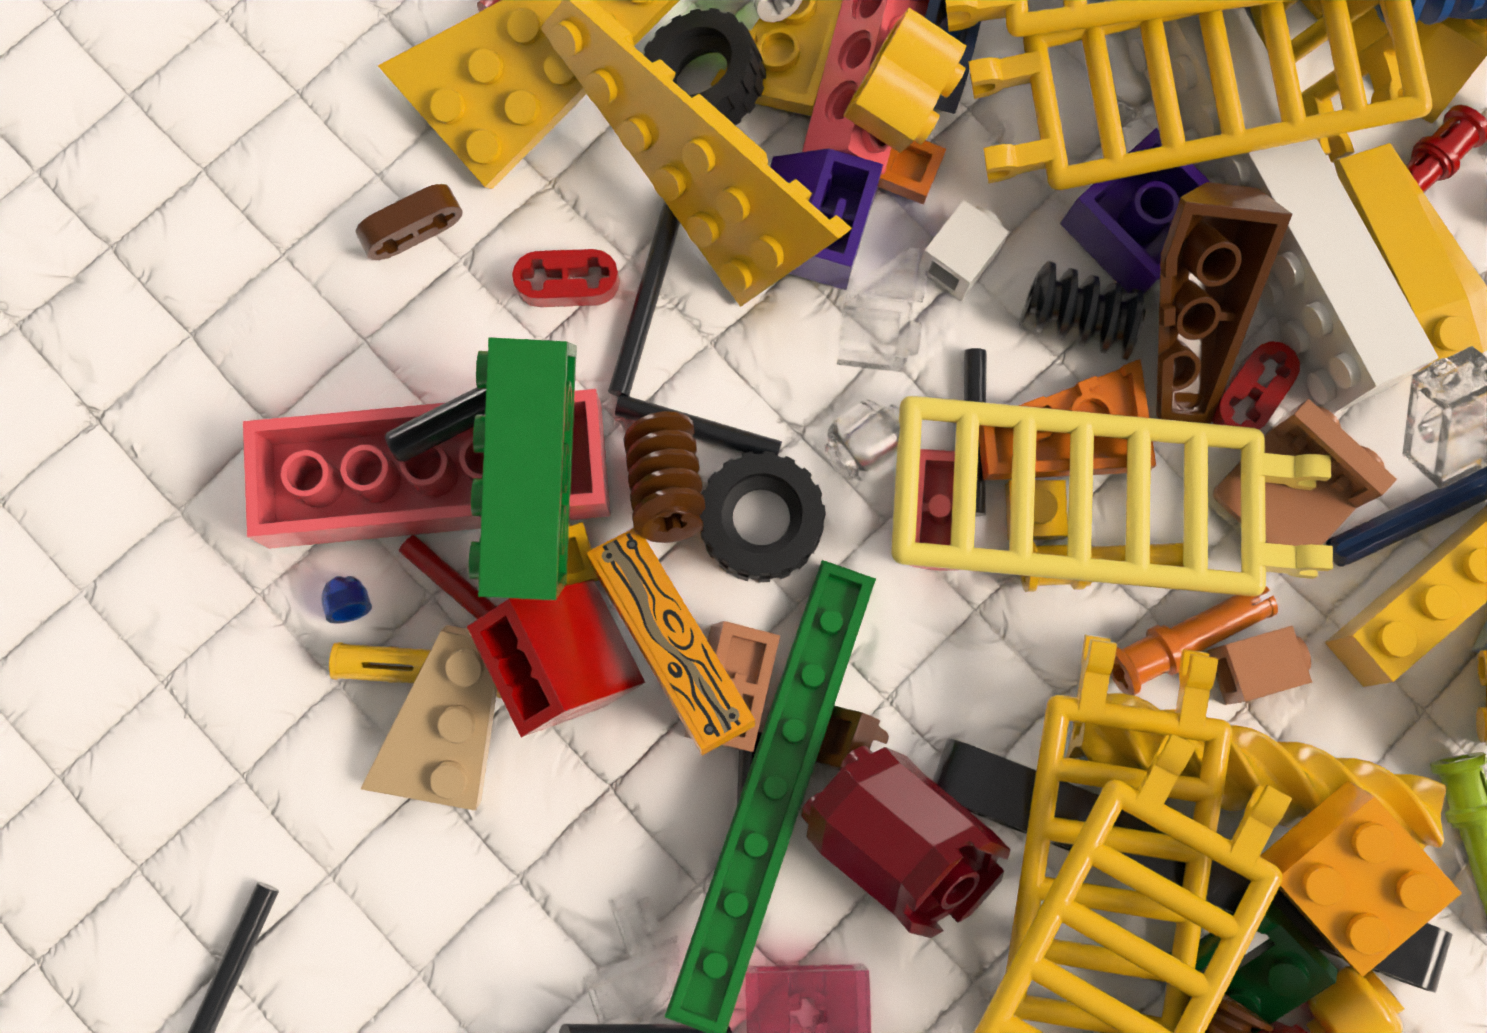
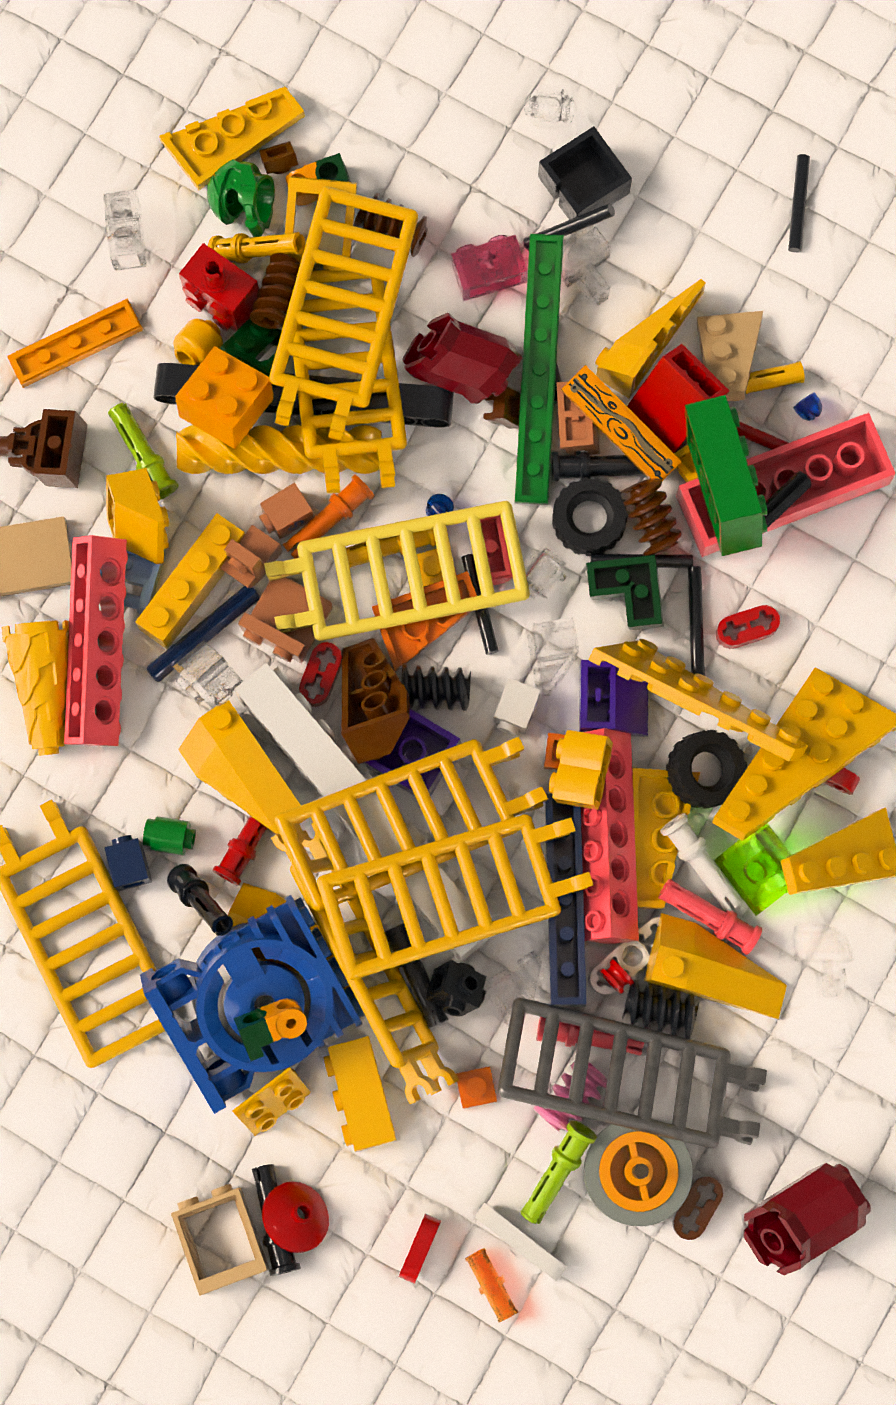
camera: 170 degrees right, 0 degrees up
(409, 222) = (851, 630): reddish brown beam -> none
(601, 769) = (637, 350): none -> yellow wedge
(731, 384) = (636, 581): none -> dark green brick
(741, 602) = (591, 466): none -> black pin
(992, 605) = (441, 503): none -> clear blue hinge
(1342, 599) = (248, 556): none -> nougat brick

